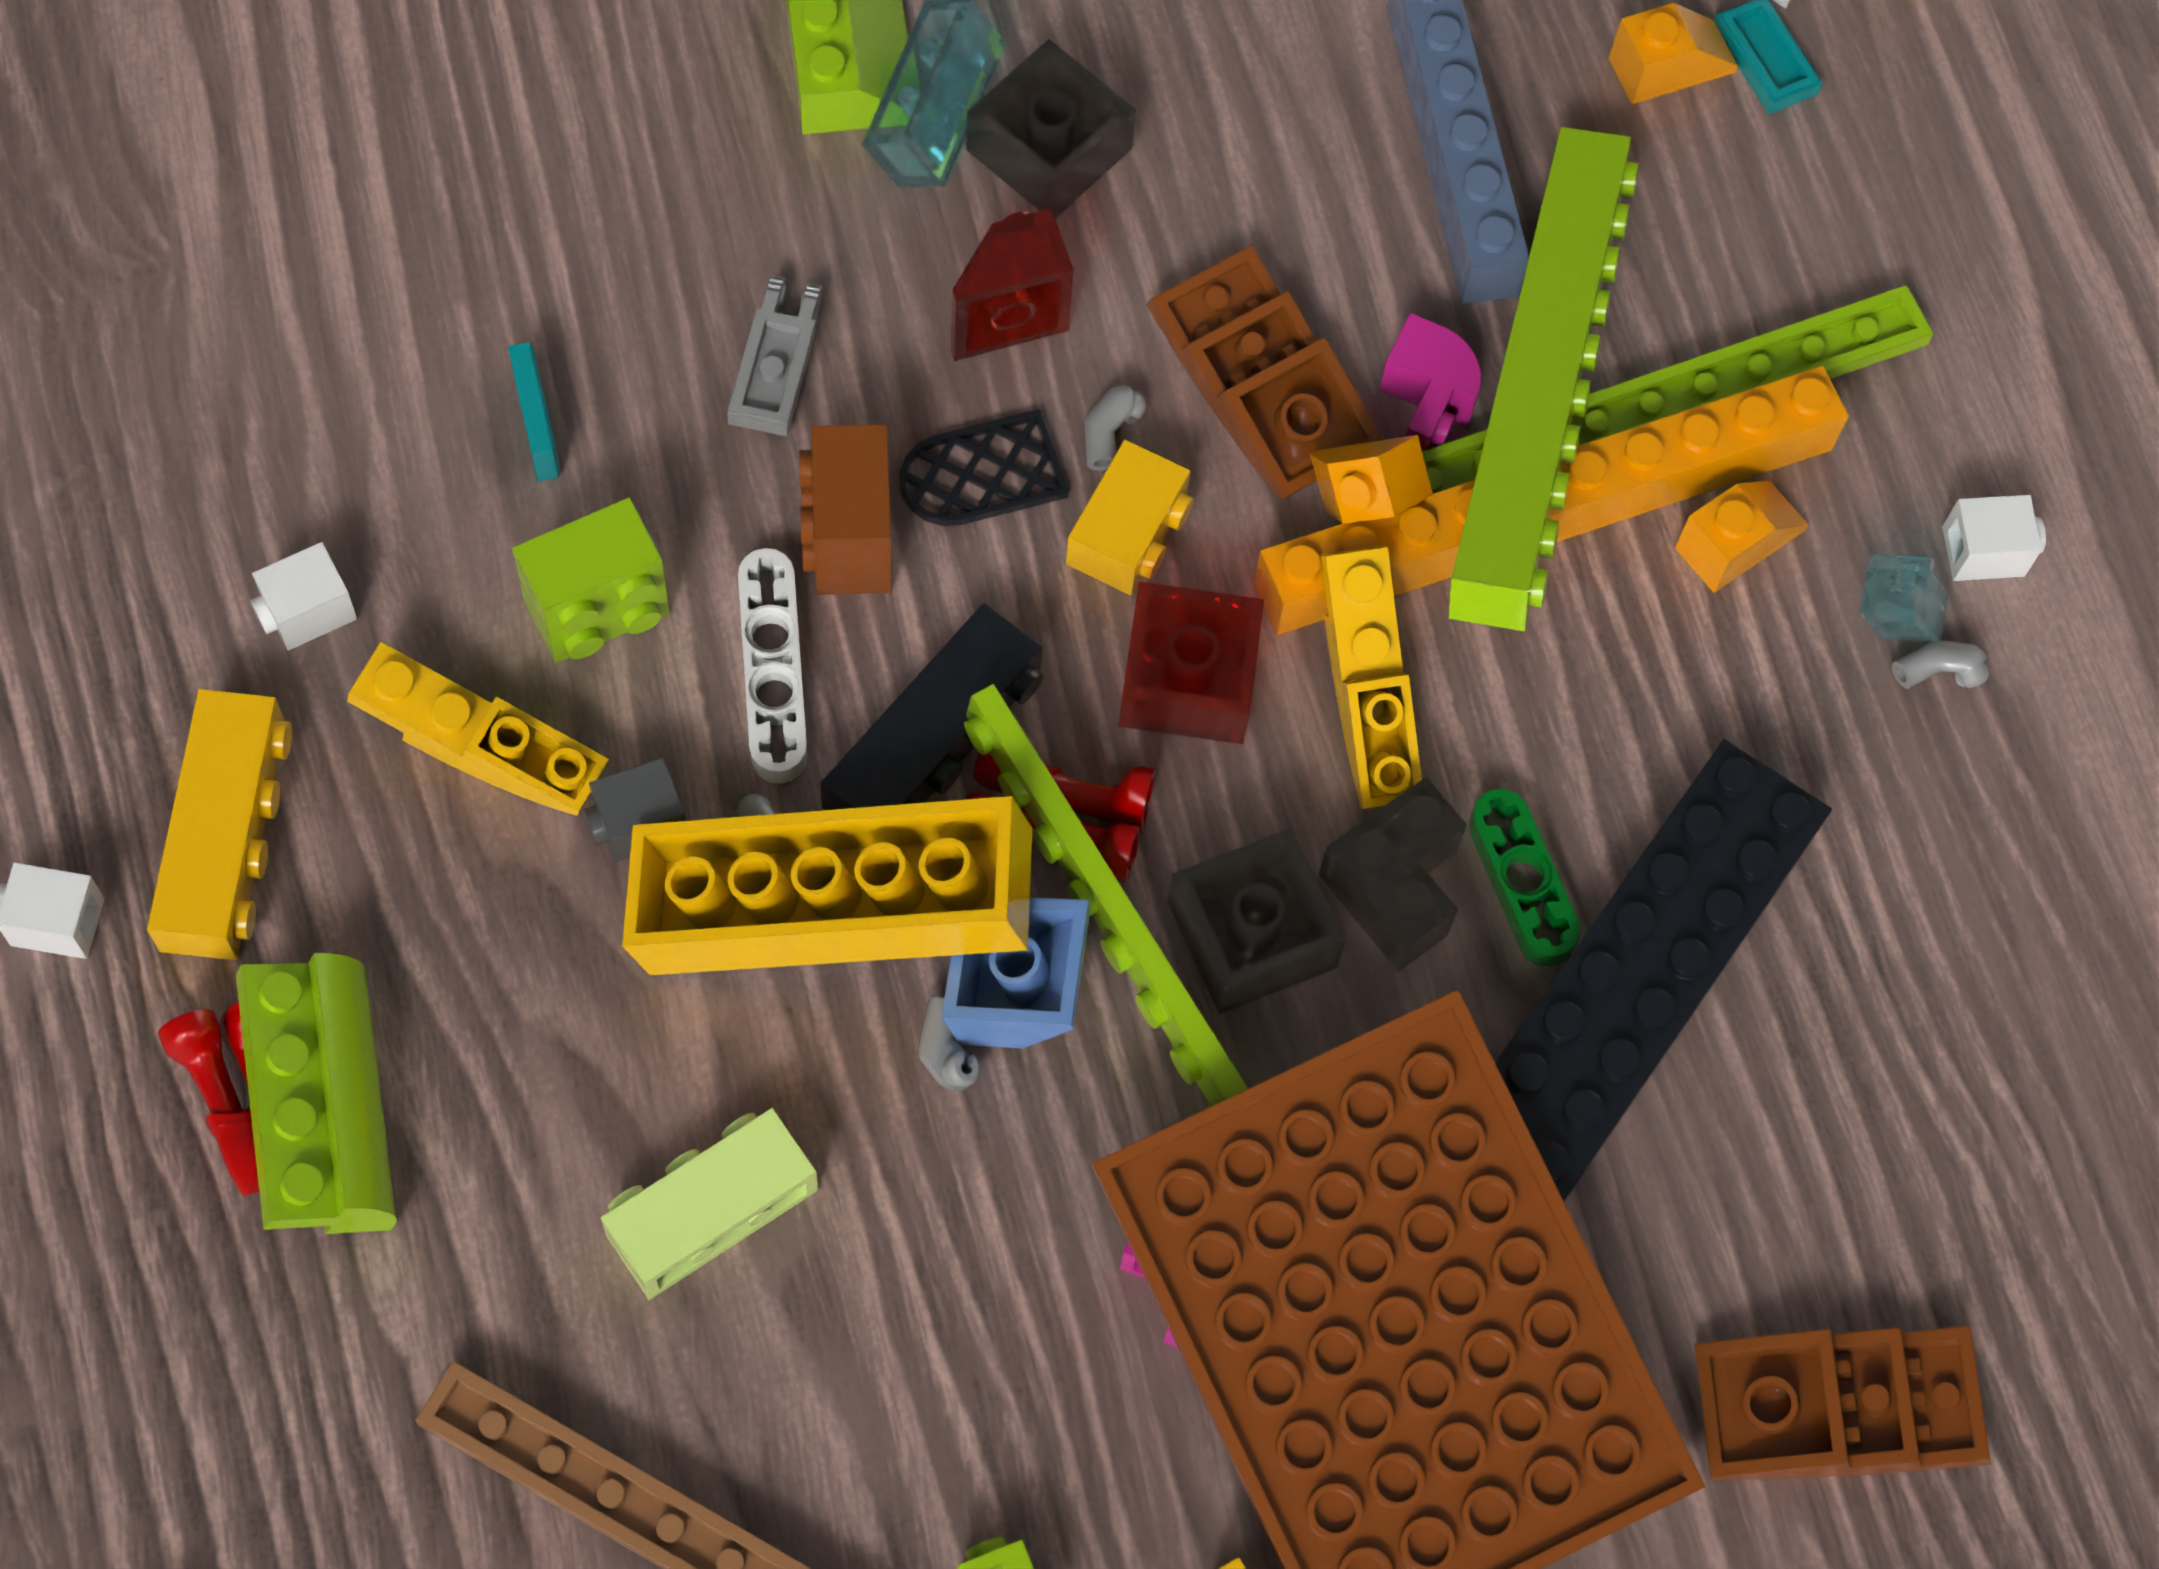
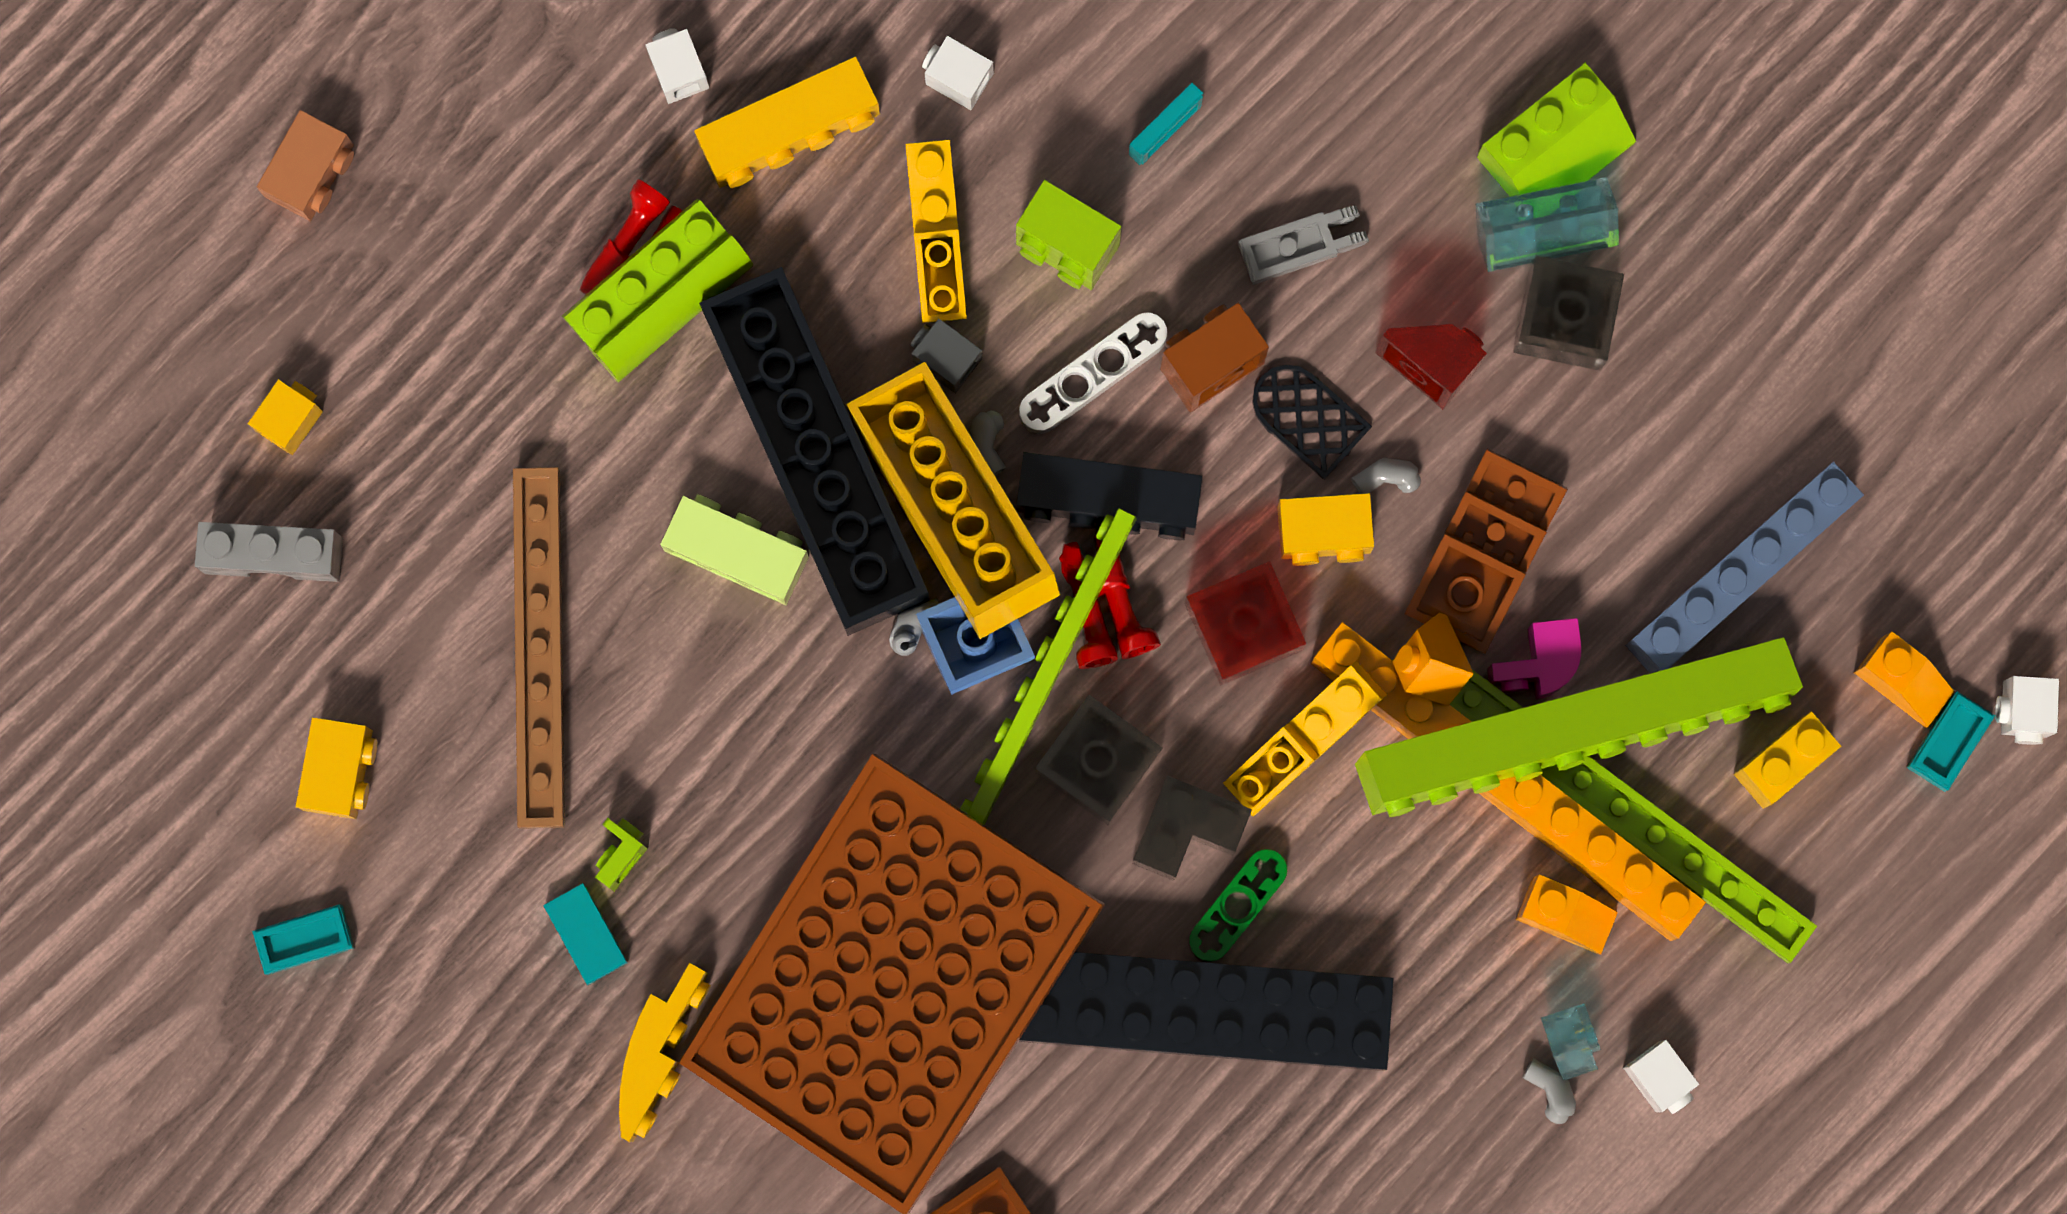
camera: 65 degrees right, 15 degrees up
(649, 1026) = (814, 451): none -> black brick
(1699, 209) = (1787, 760): none -> yellow brick

